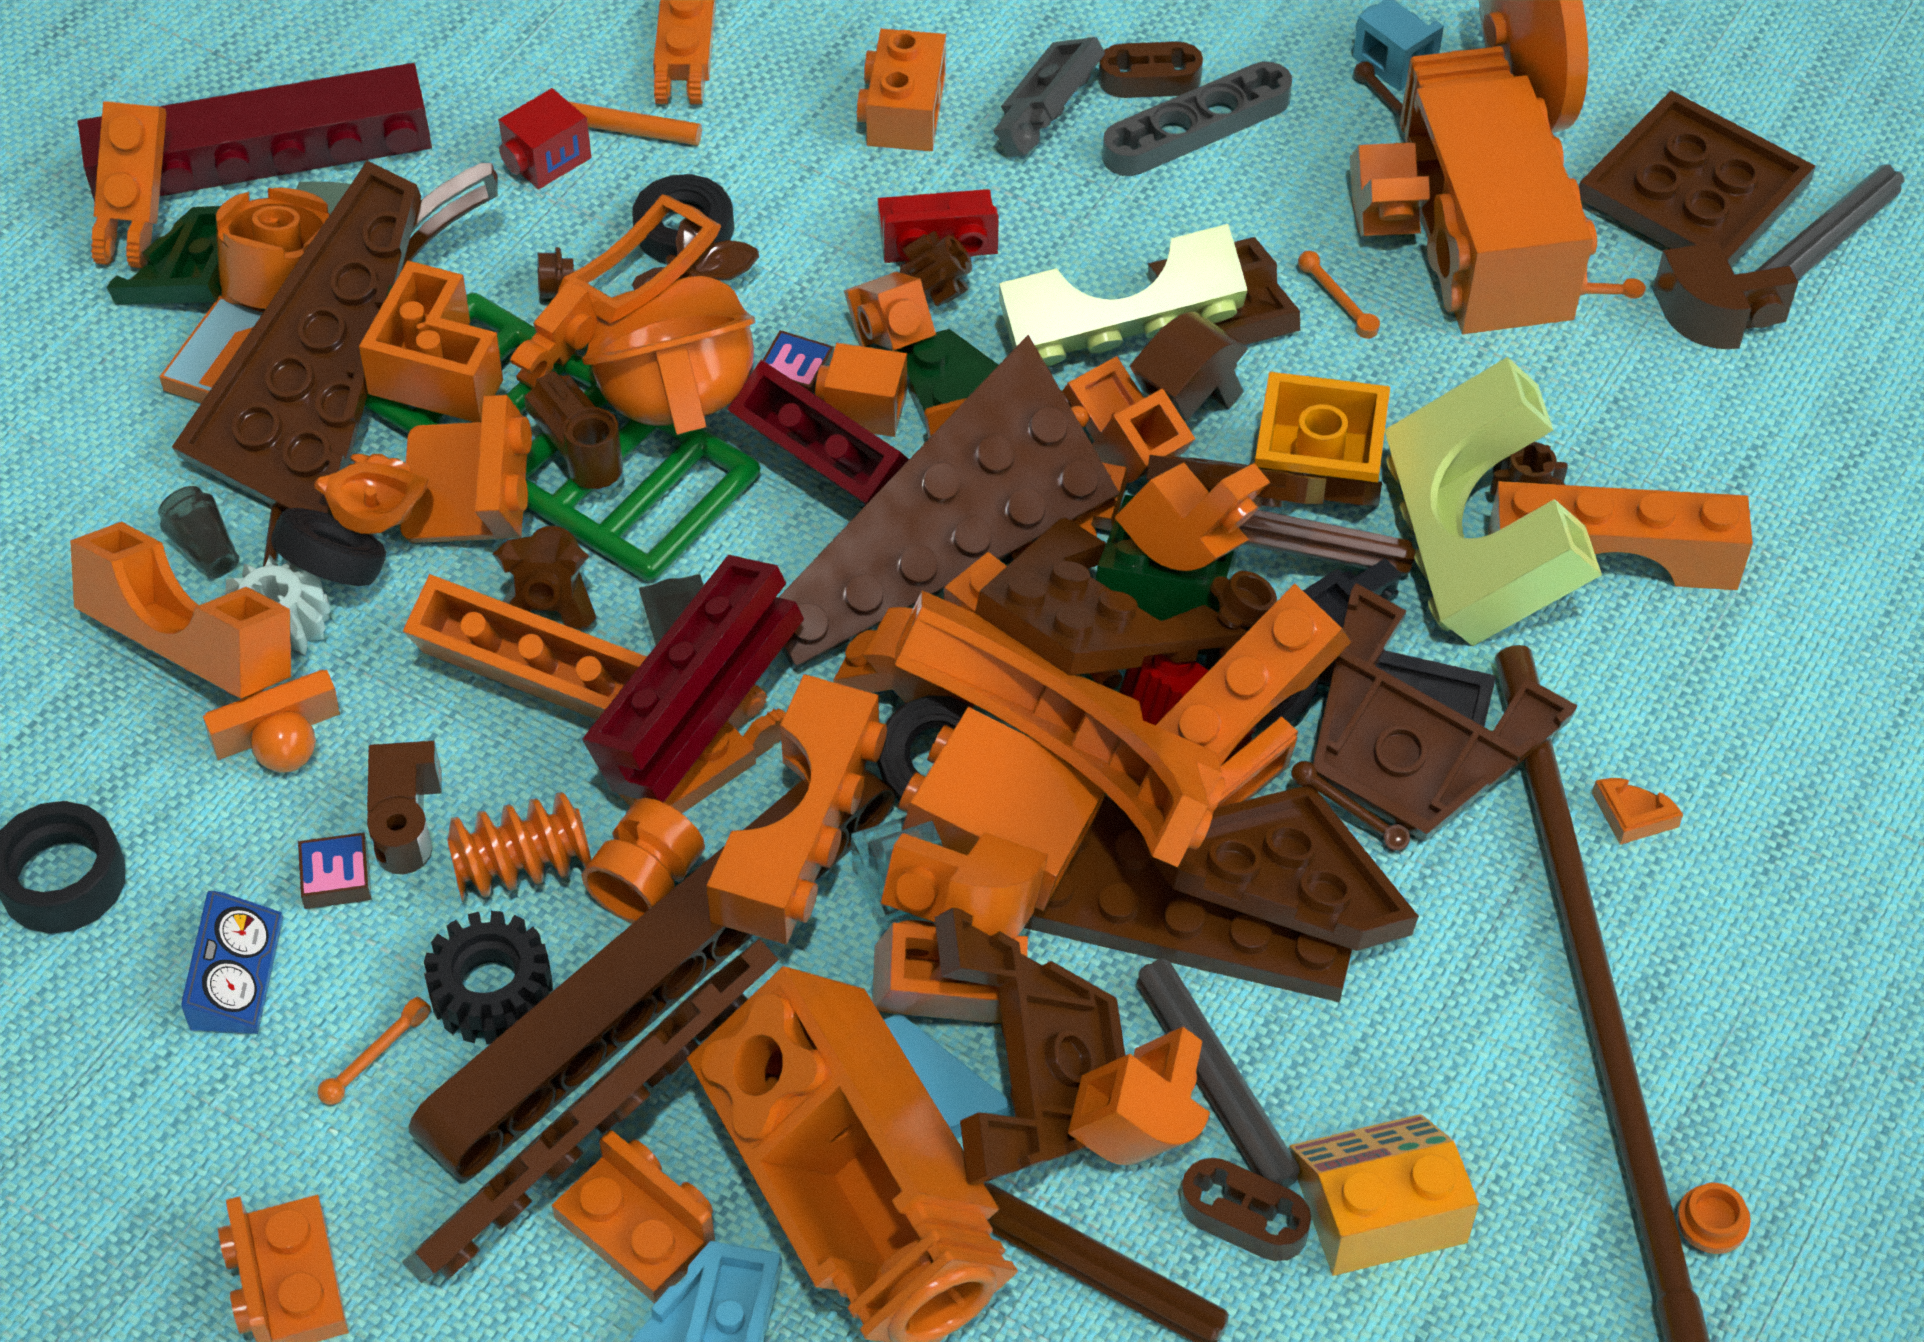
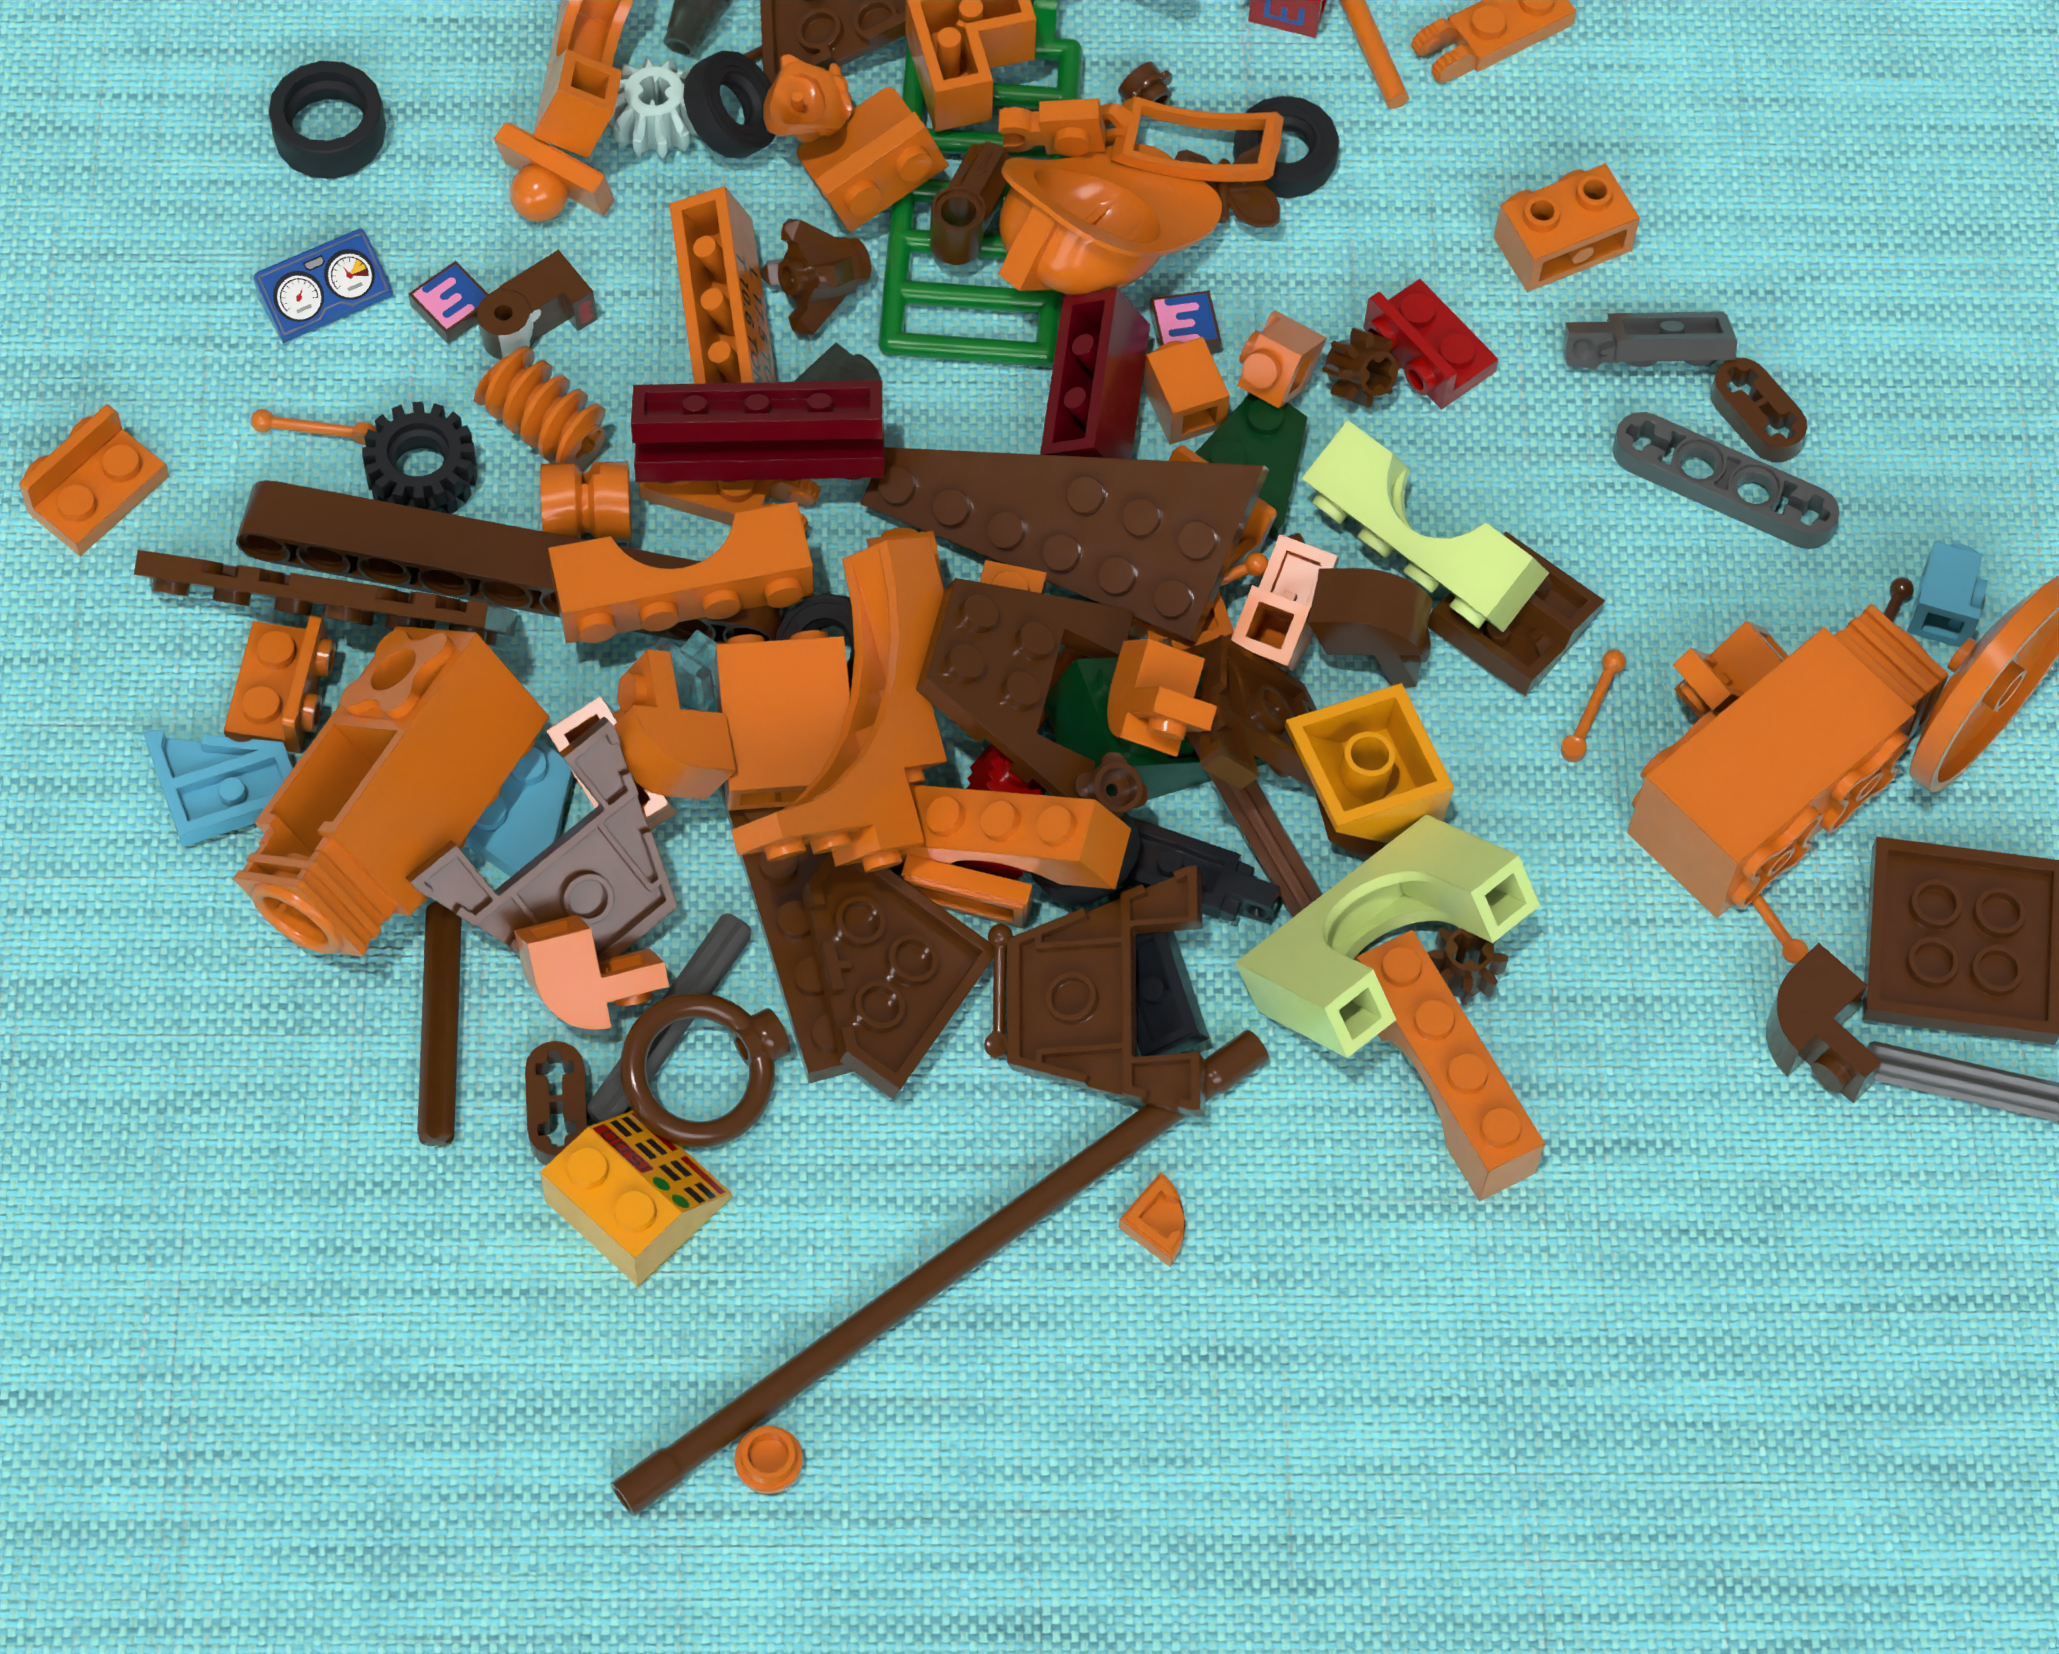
camera: 55 degrees right, 10 degrees up
(1287, 1012) = (758, 1040): none -> reddish brown piece

